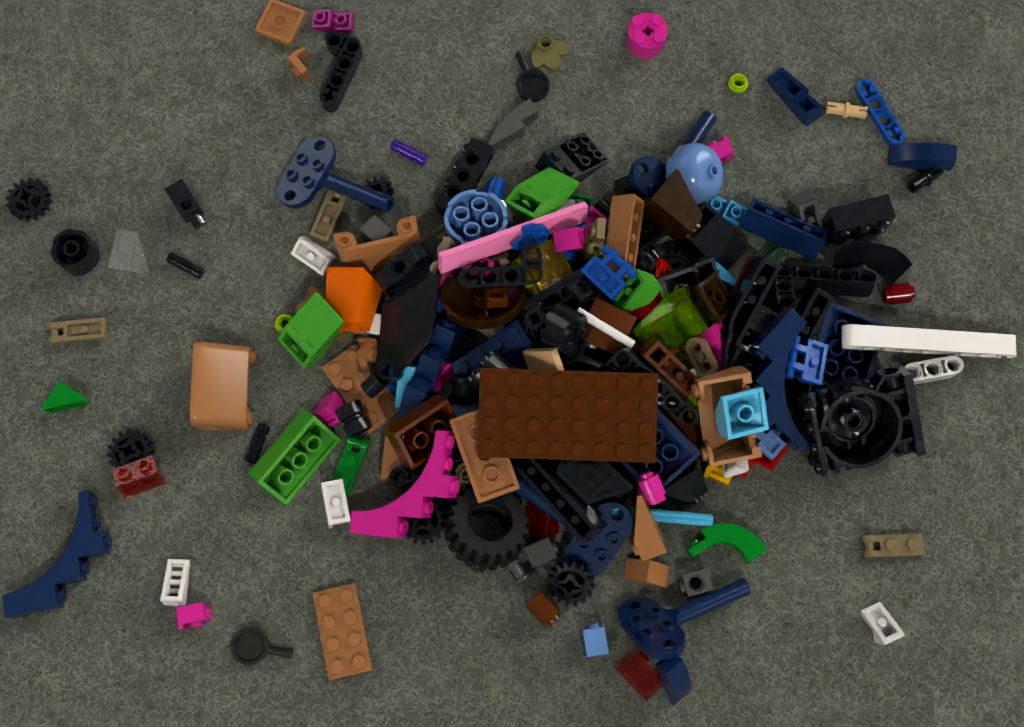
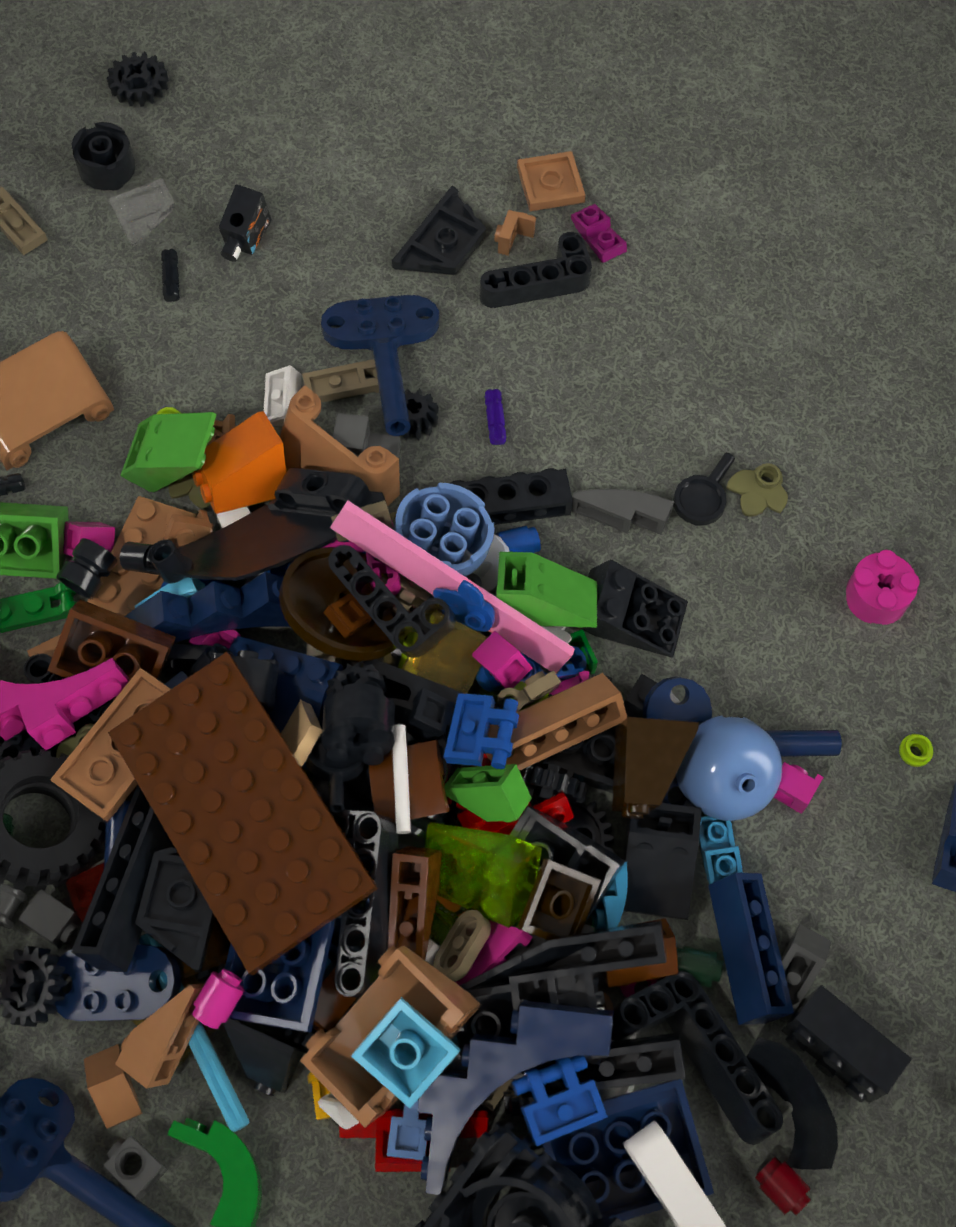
camera: 50 degrees right, 10 degrees down
(275, 103) = (442, 239): none -> black wing

